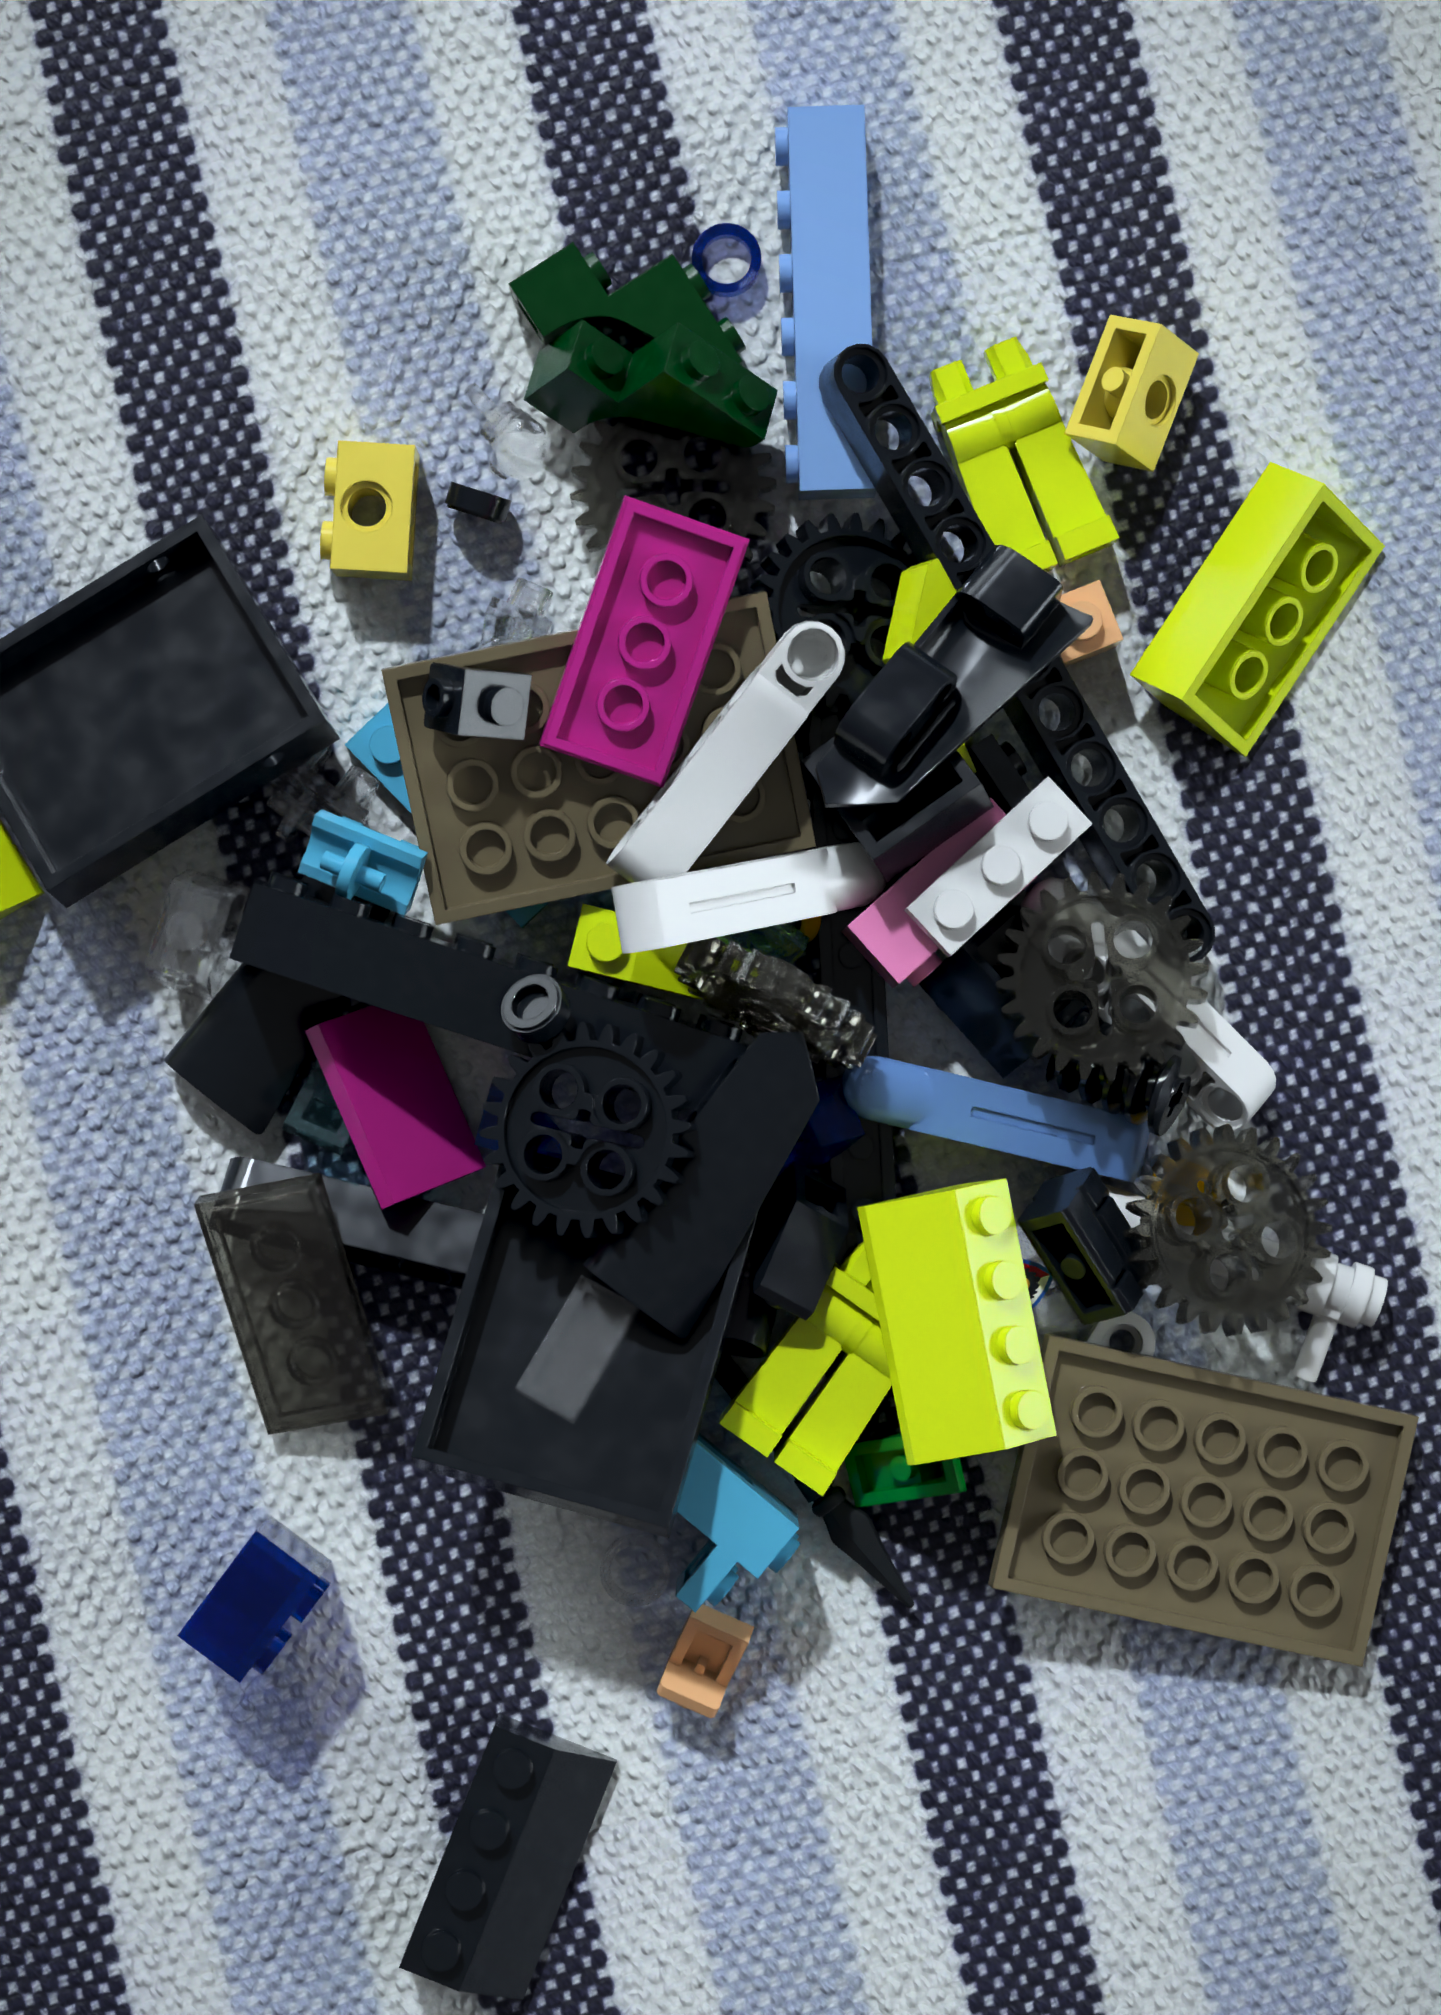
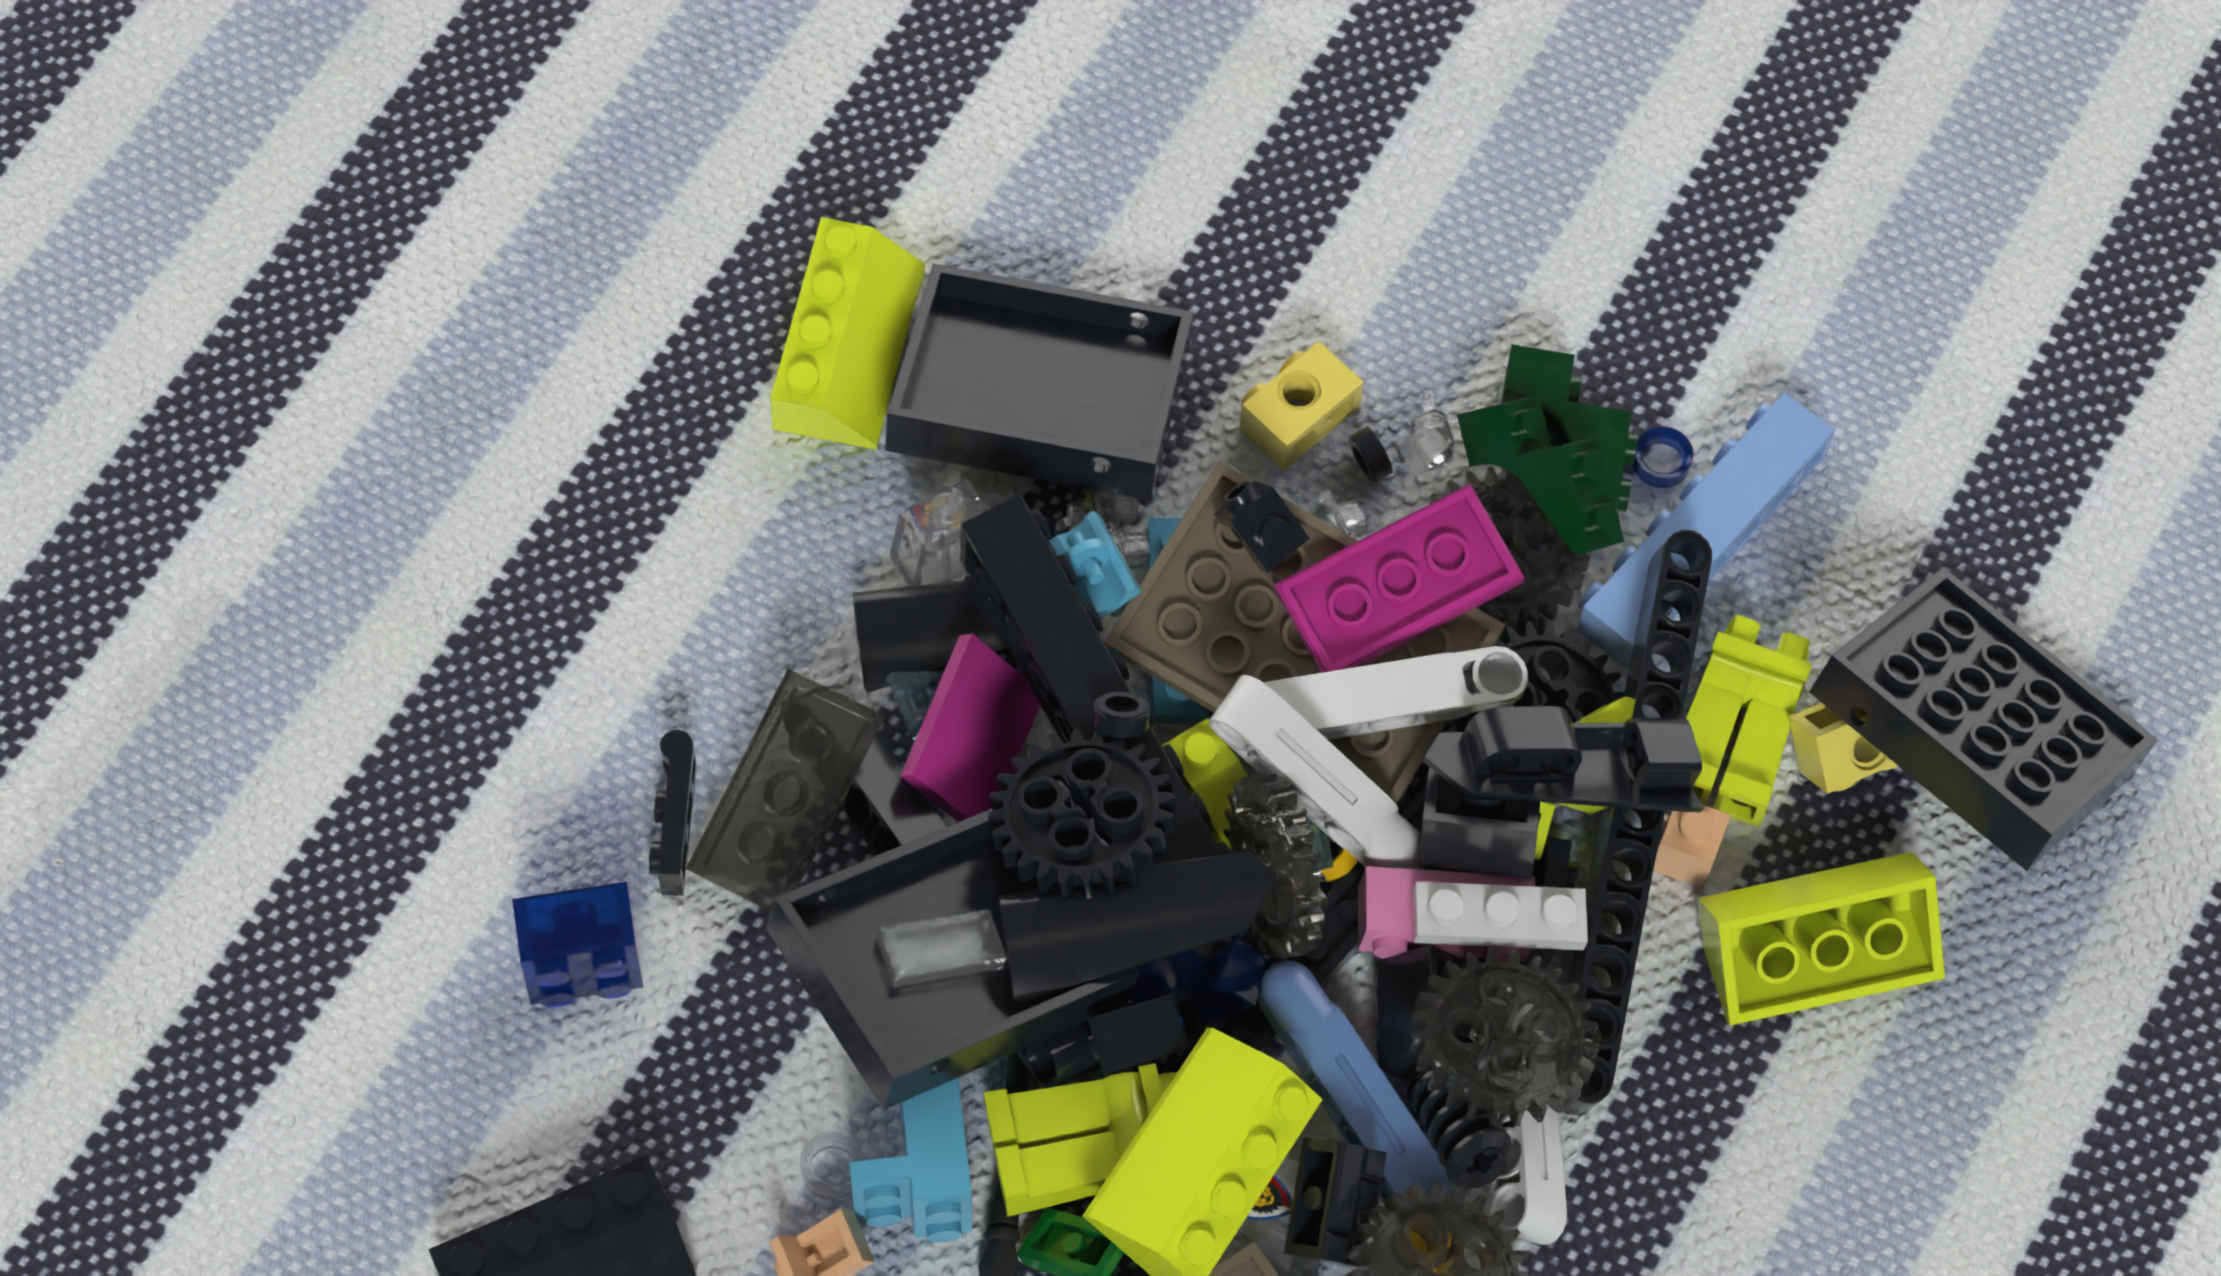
camera: 40 degrees right, 25 degrees down
(211, 1396) = (674, 810): none -> black plate
(1234, 283) = (1983, 717): none -> black piece

